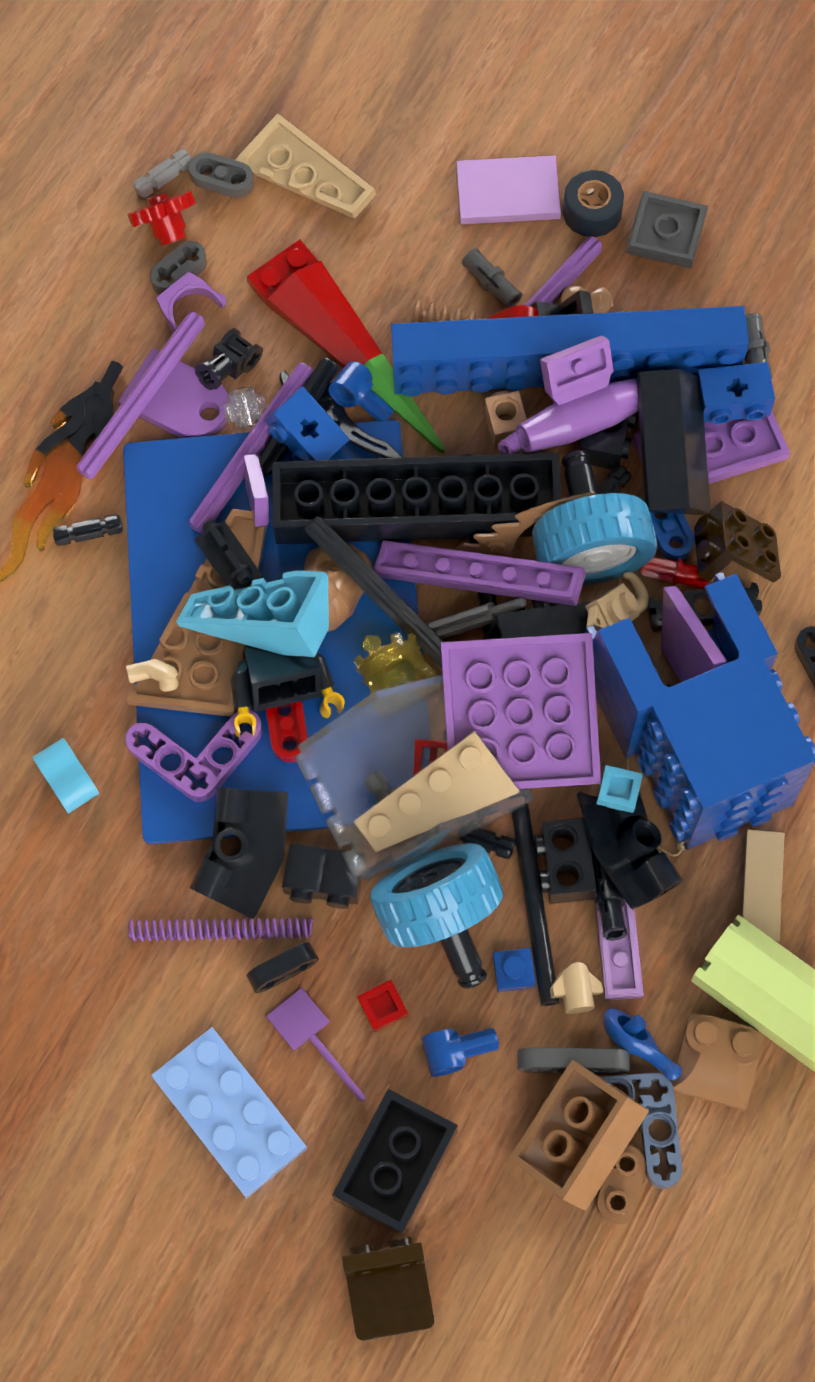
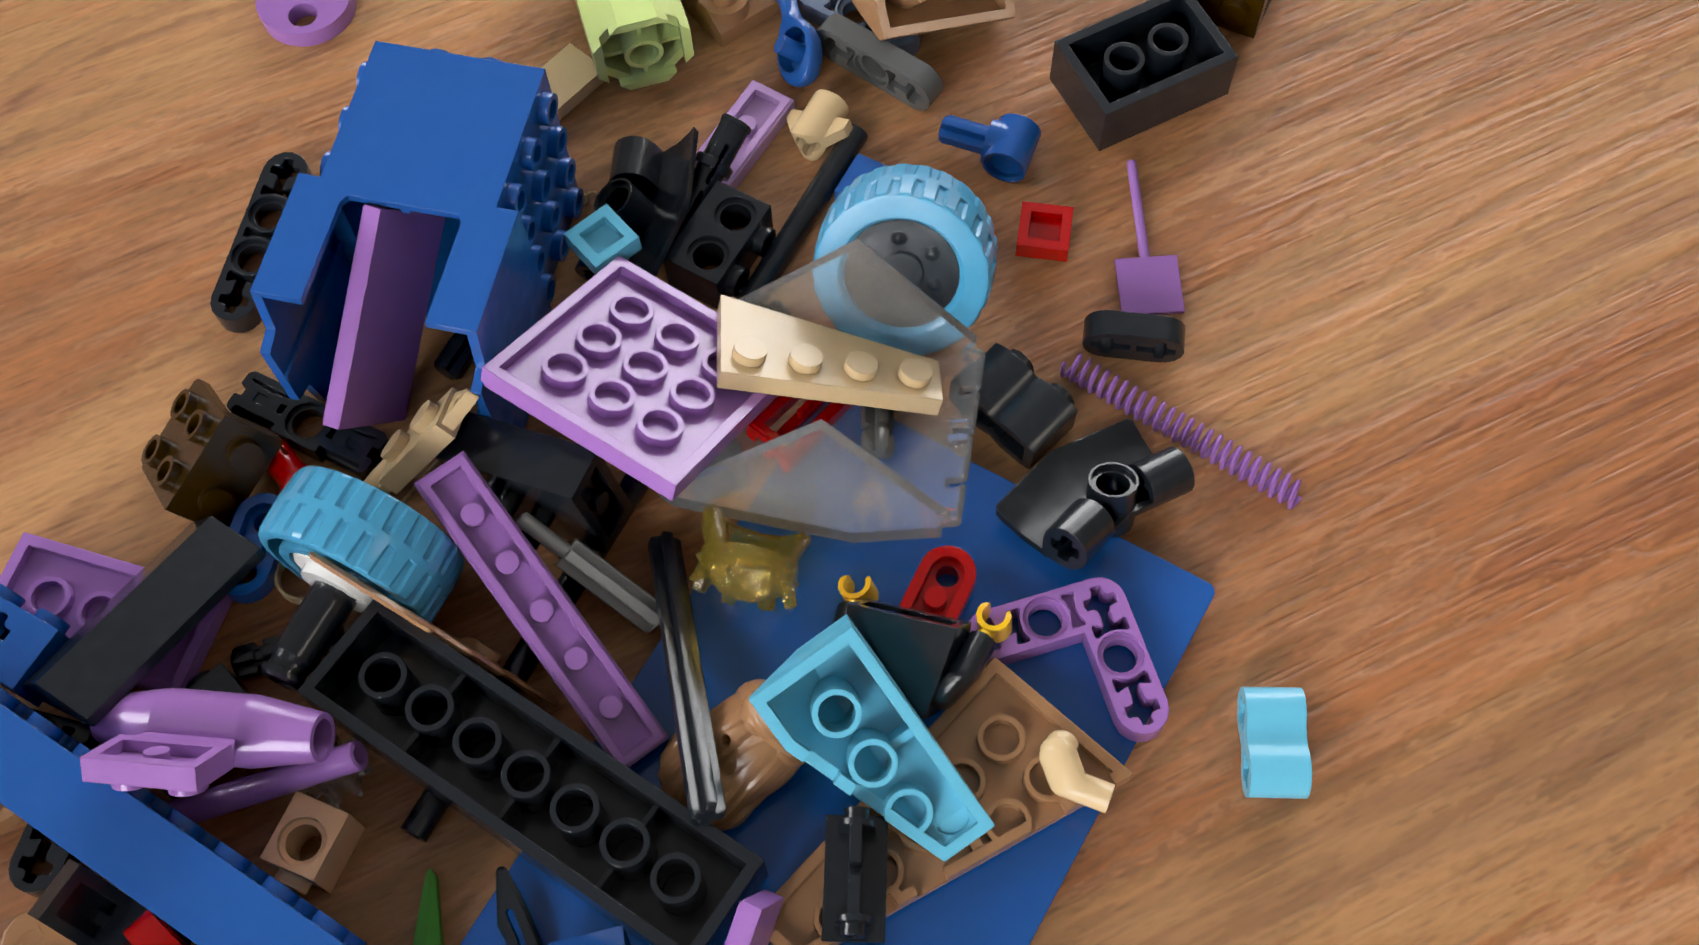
camera: 145 degrees left, 5 degrees down
(229, 1112) = (1293, 240): light blue plate -> none

